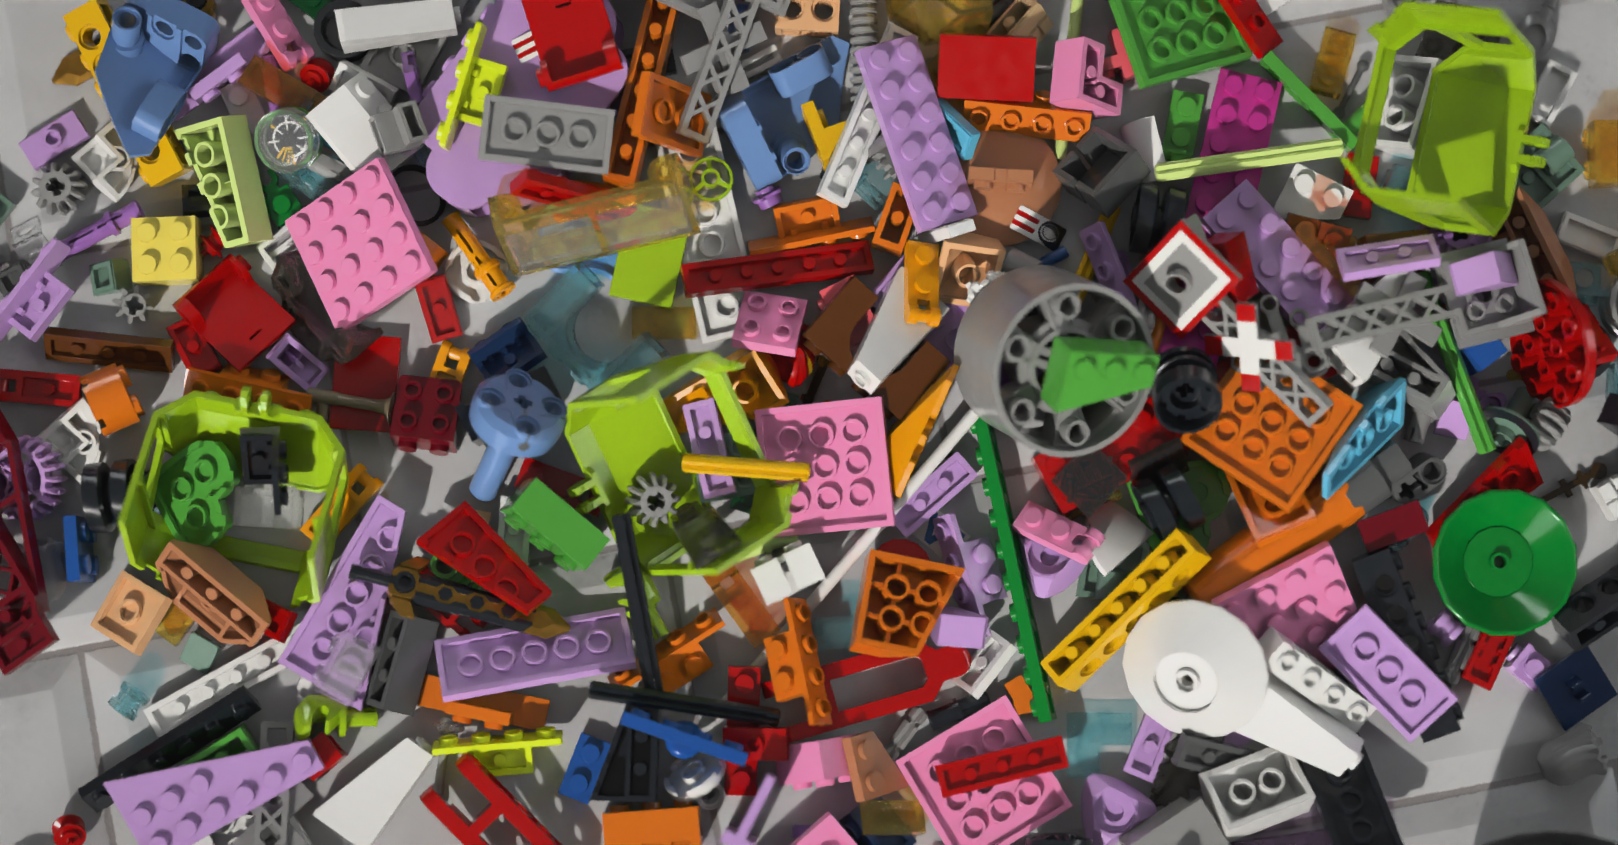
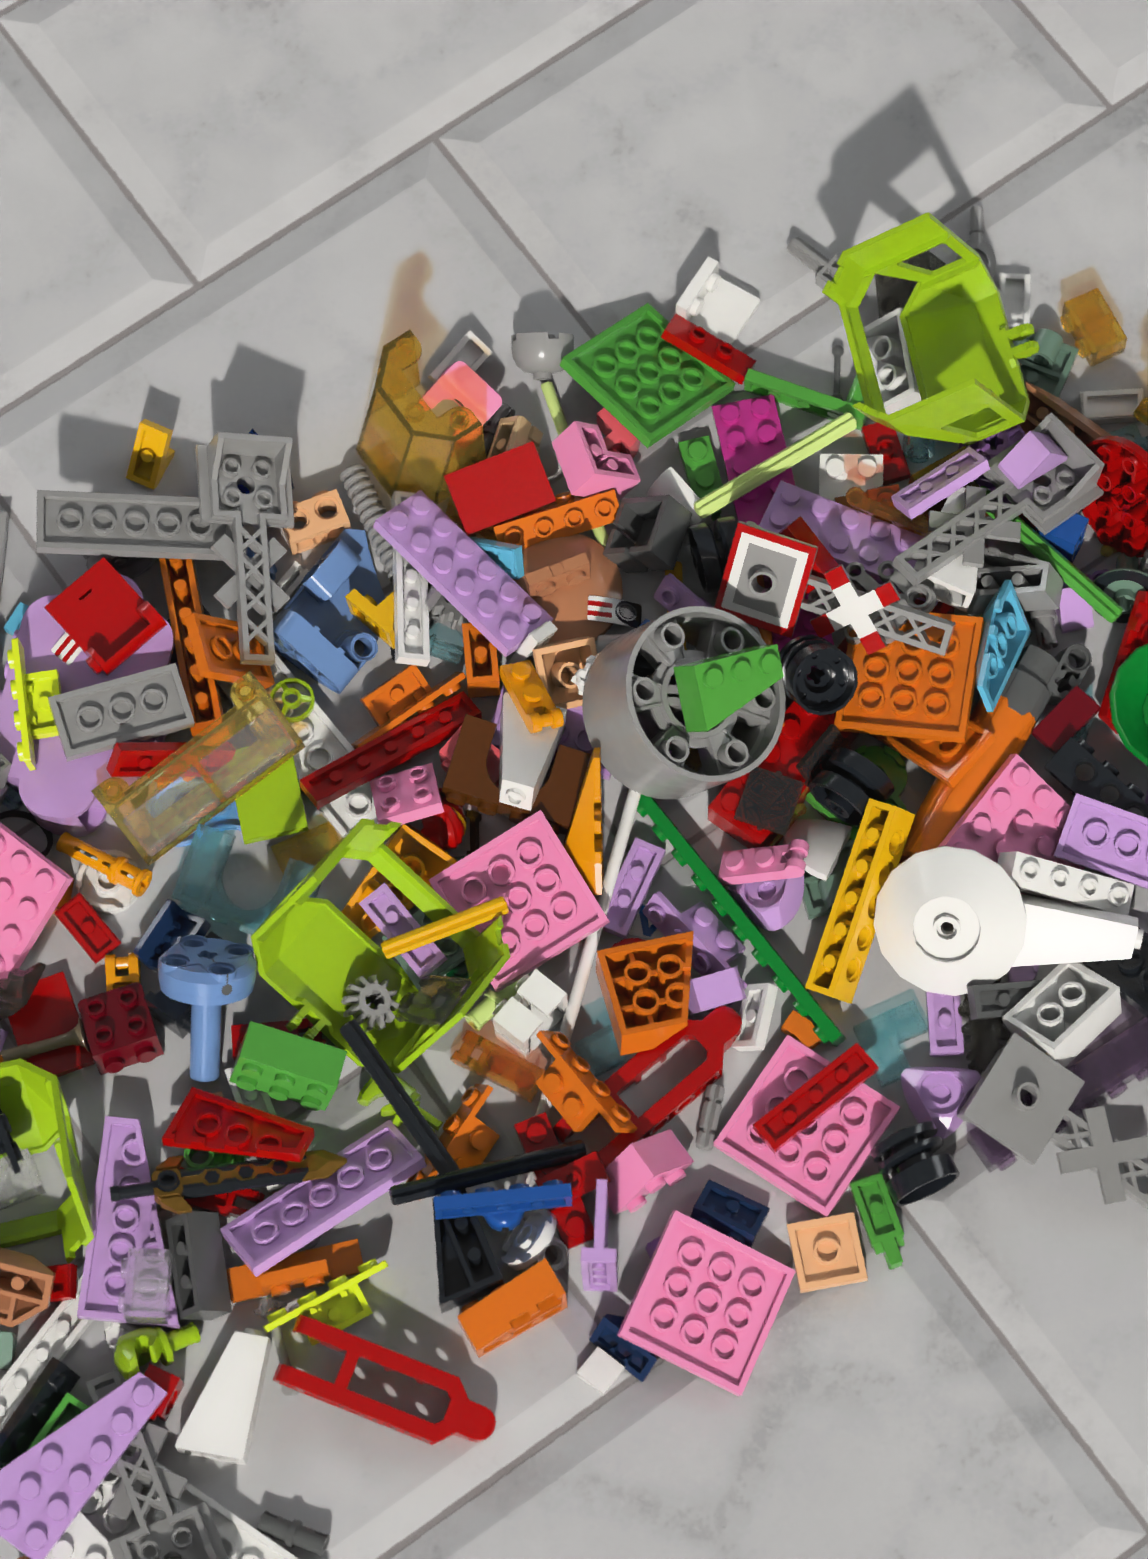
camera: 25 degrees left, 15 degrees down
(353, 502) = (86, 1143): light orange plate -> none
(584, 768) = (420, 1288): blue plate -> none
(768, 197) = (352, 693): medium lavender plate -> none
(871, 767) = (693, 1155): nougat wing -> none
(892, 817) = (736, 1194): clear yellow tile -> none
(956, 710) = (748, 1072): black axle -> none
(1332, 62) = (808, 359): clear yellow slope -> none

